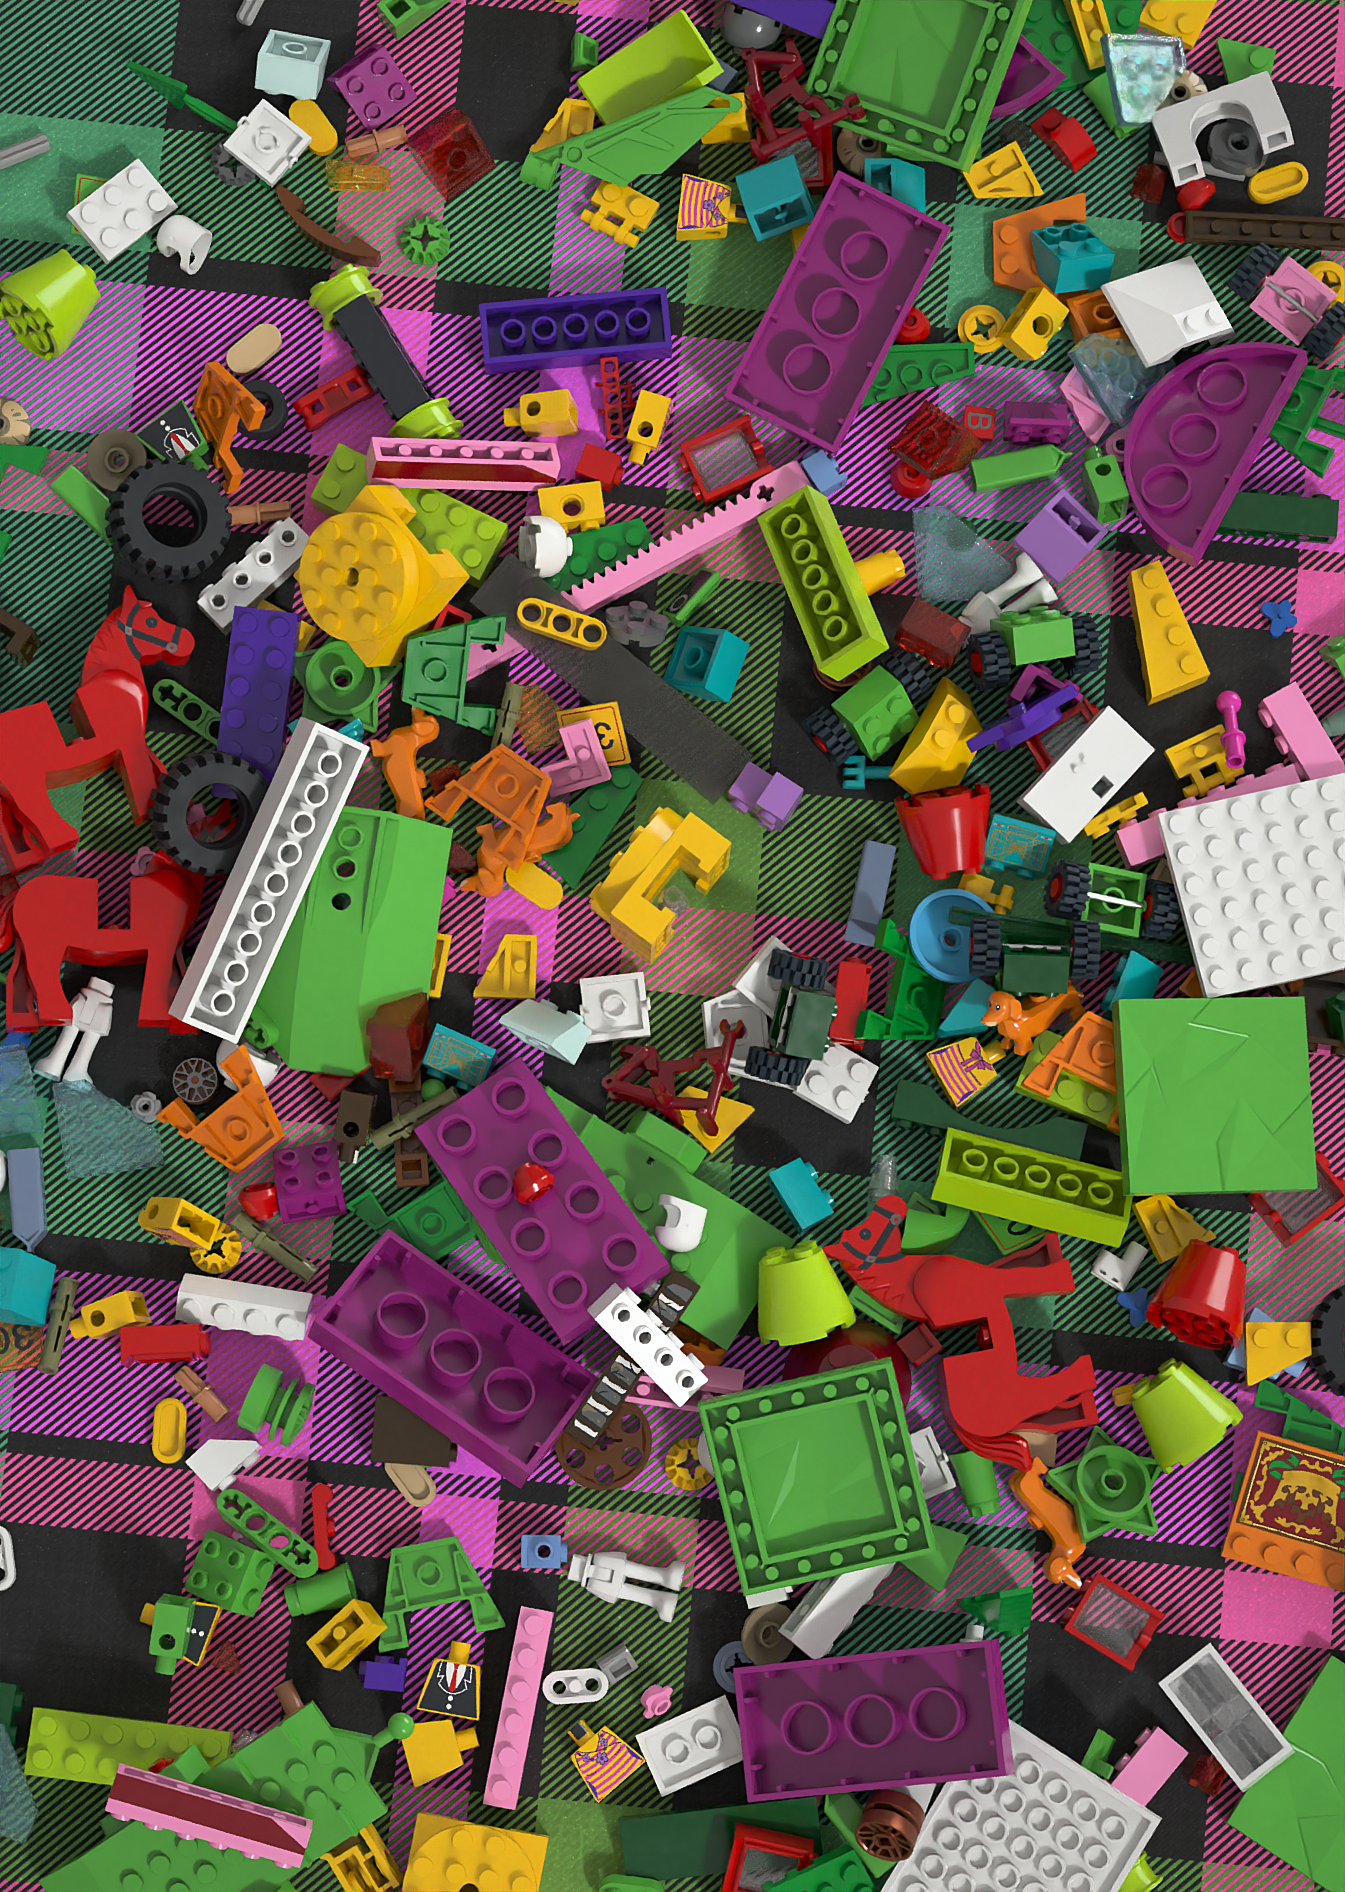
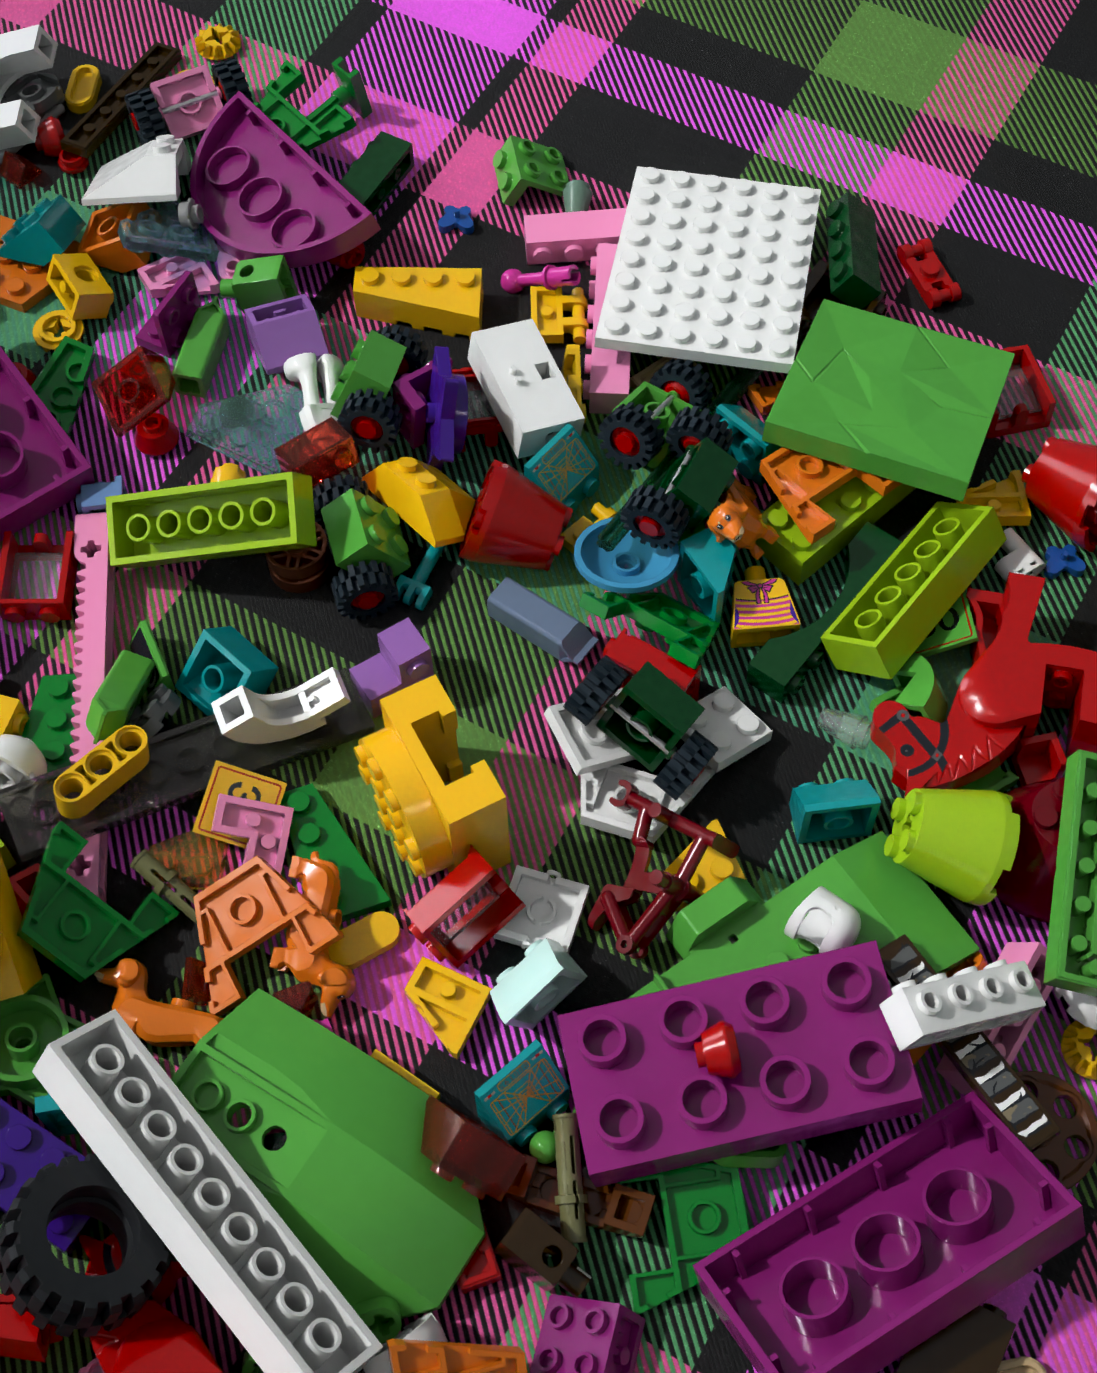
camera: 60 degrees left, 20 degrees down
(581, 950) = (463, 910): none -> red window
(639, 595) = (119, 694): none -> bright green piece
(678, 729) = (280, 716): none -> white arch
(1144, 384) = (190, 214): none -> light grey plate

